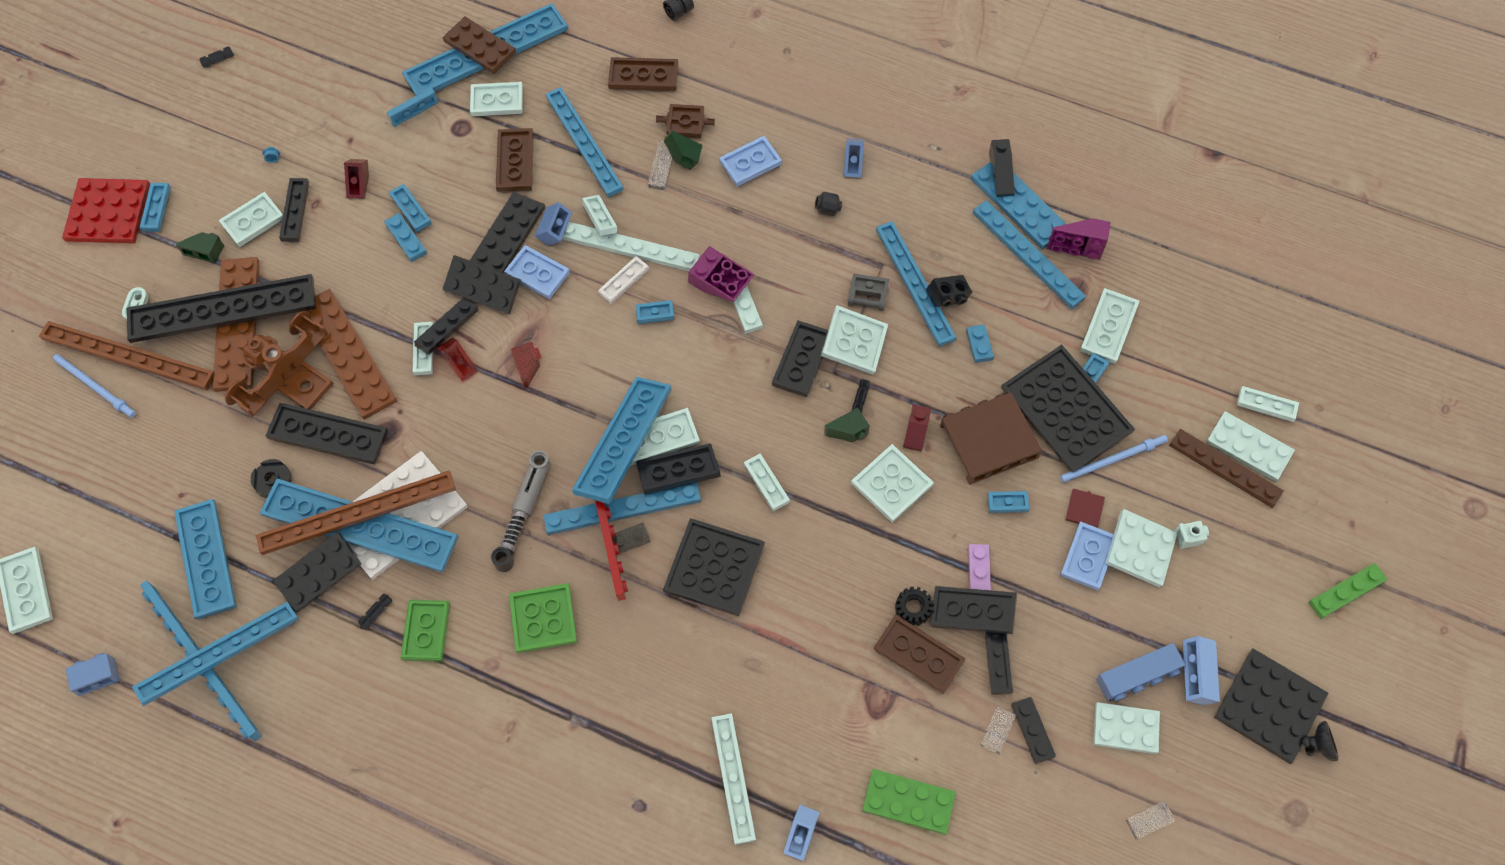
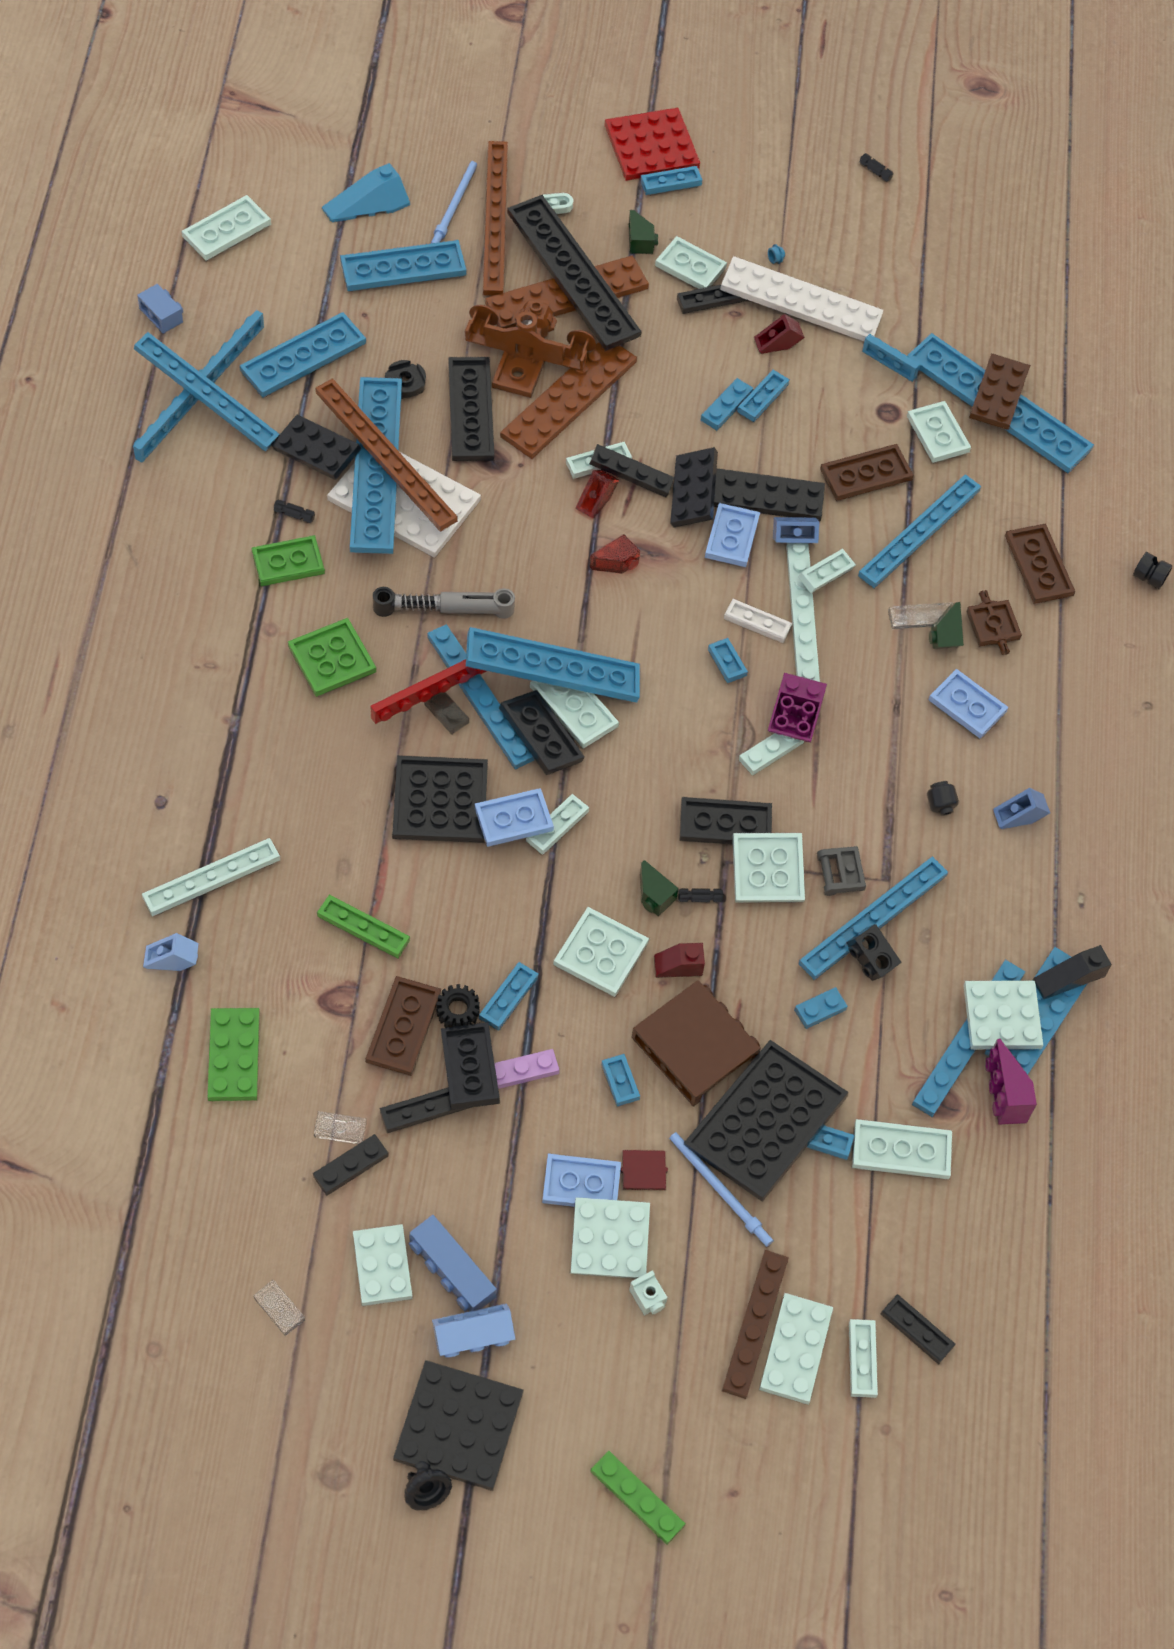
camera: 65 degrees right, 5 degrees down
(50, 451) = (373, 193): none -> dark azure wedge
(143, 447) = (403, 265): none -> dark azure plate
(326, 151) = (801, 299): none -> white plate
(756, 512) = (514, 817): none -> light blue plate
(818, 661) = (363, 926): none -> bright green plate
(913, 564) = (508, 996): none -> dark azure plate
(1022, 224) = (1003, 1012): none -> light aqua plate
(1249, 362) = (918, 1329): none -> black tile

